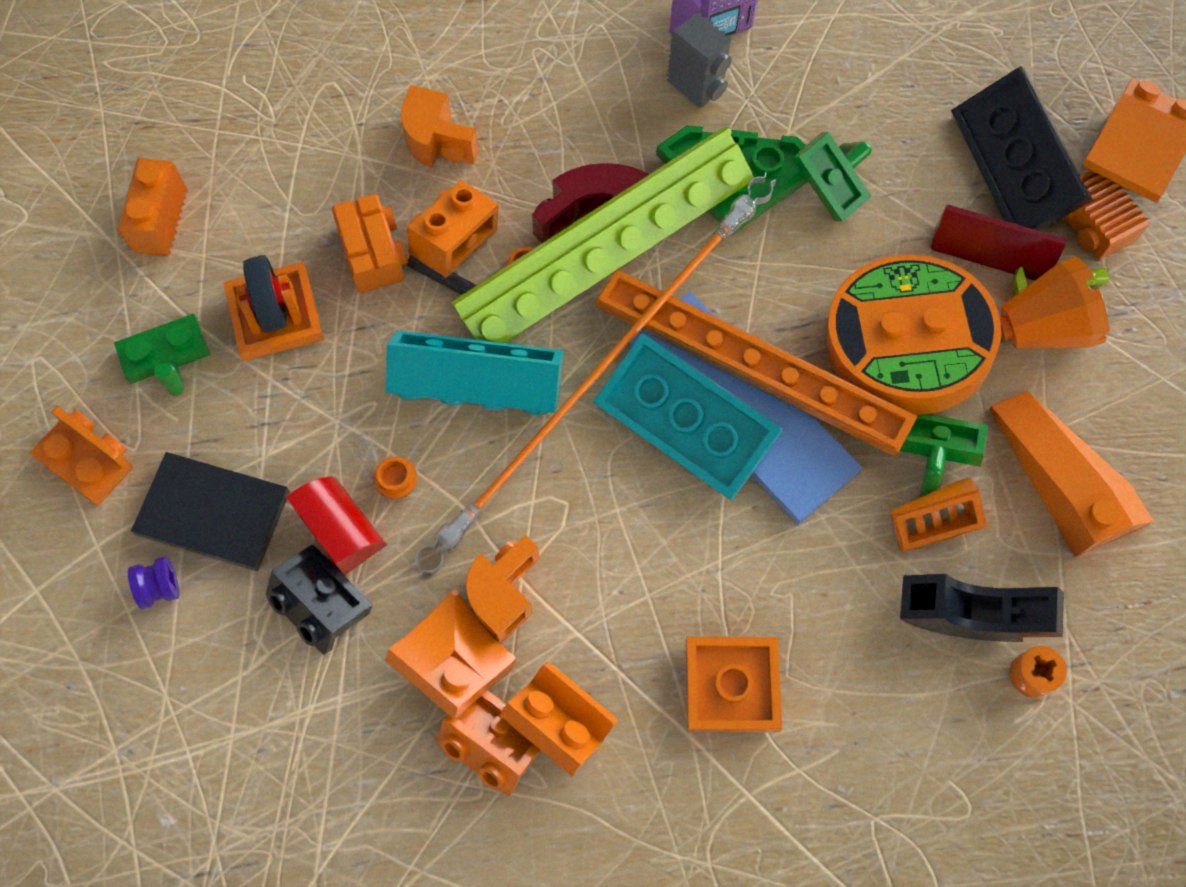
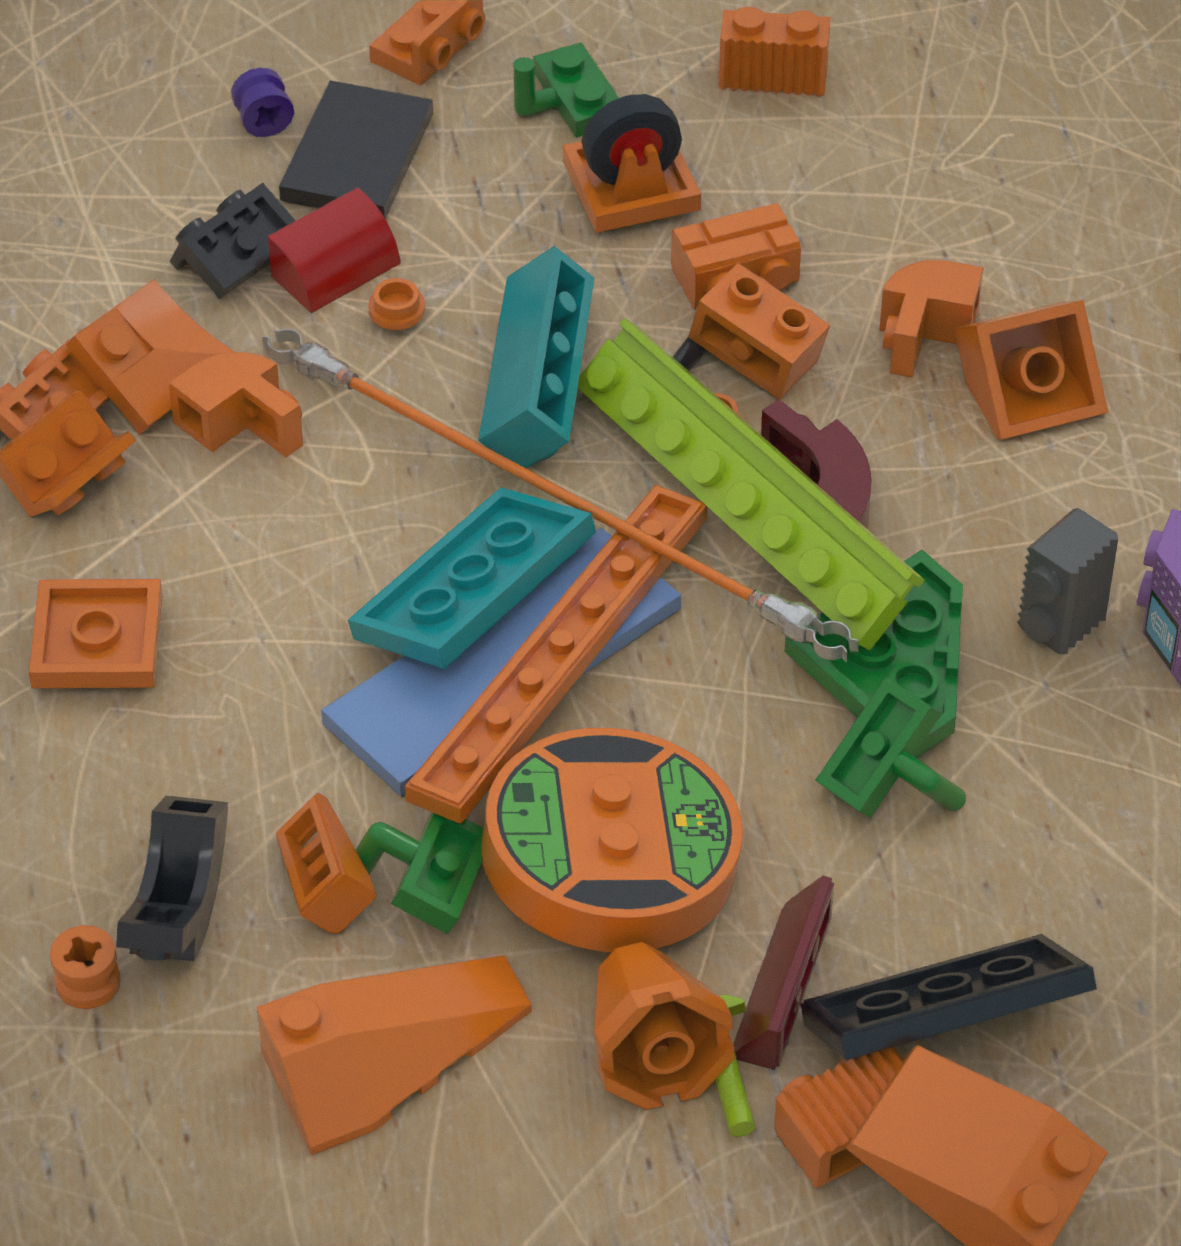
camera: 90 degrees right, 20 degrees down
(488, 73) = (1032, 368): none -> orange slope

